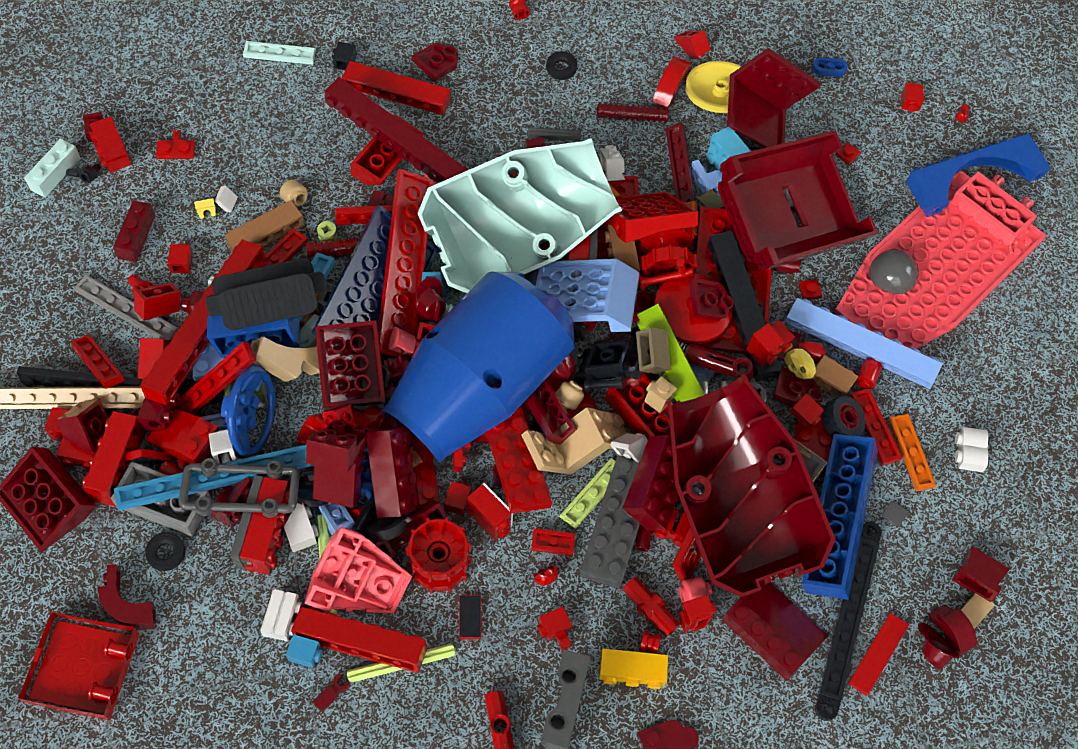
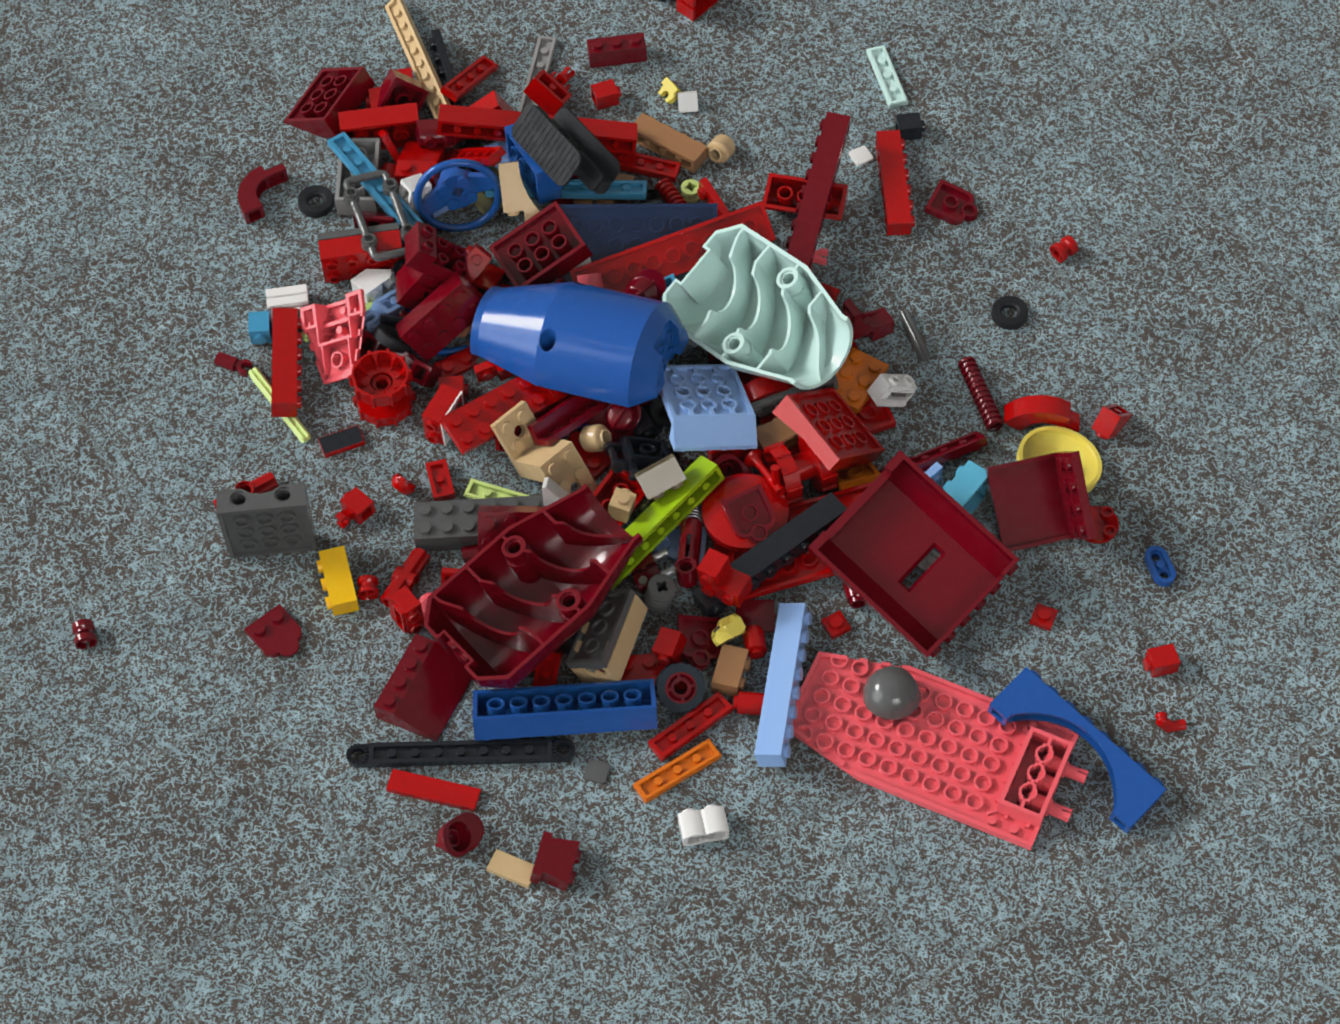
camera: 75 degrees right, 5 degrees down
(81, 667) = (194, 188): red piece -> none
(175, 148) = (727, 44): red plate -> none
(956, 628) = (481, 848): dark red brick -> none

